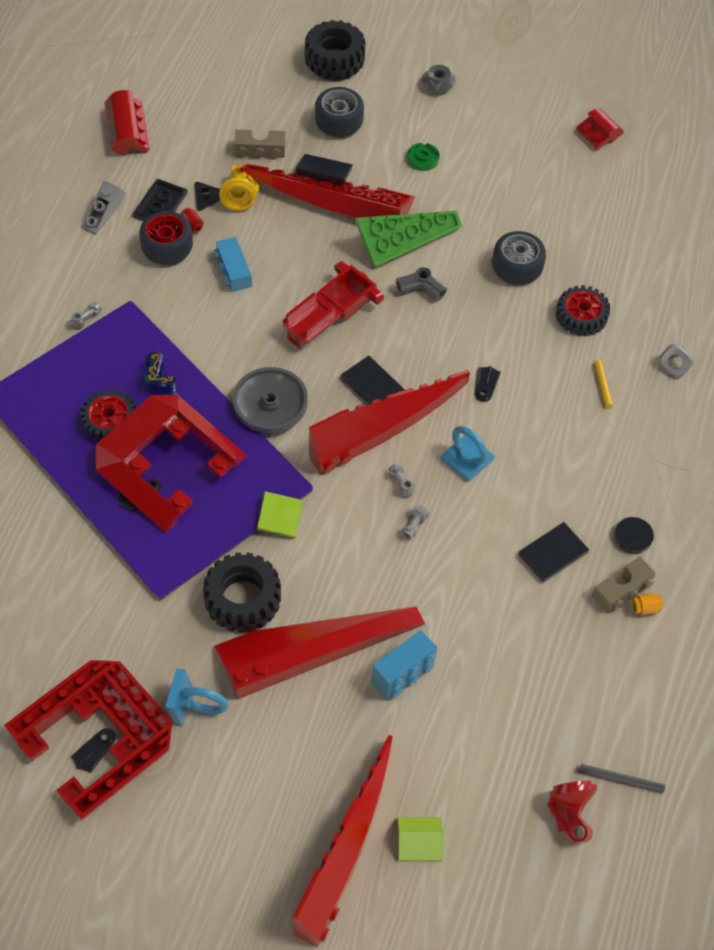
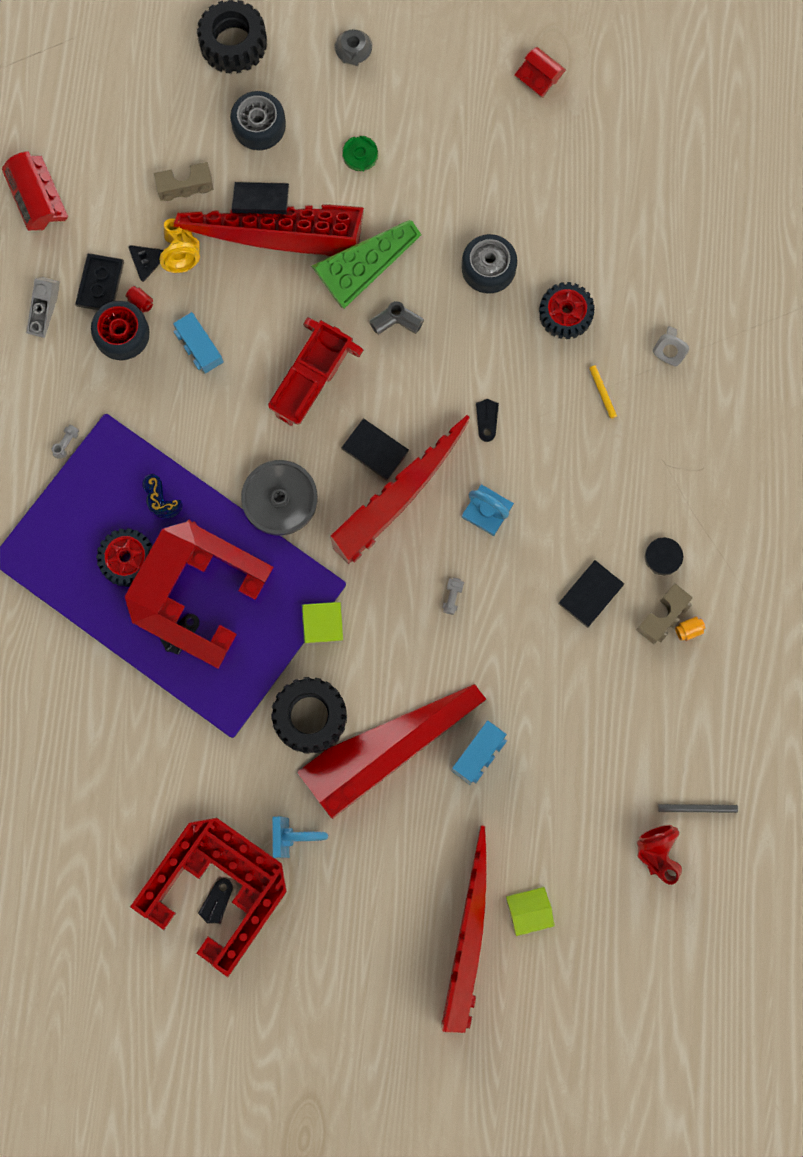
camera: 10 degrees left, 20 degrees up
(406, 485) = (436, 559): light grey bar -> none

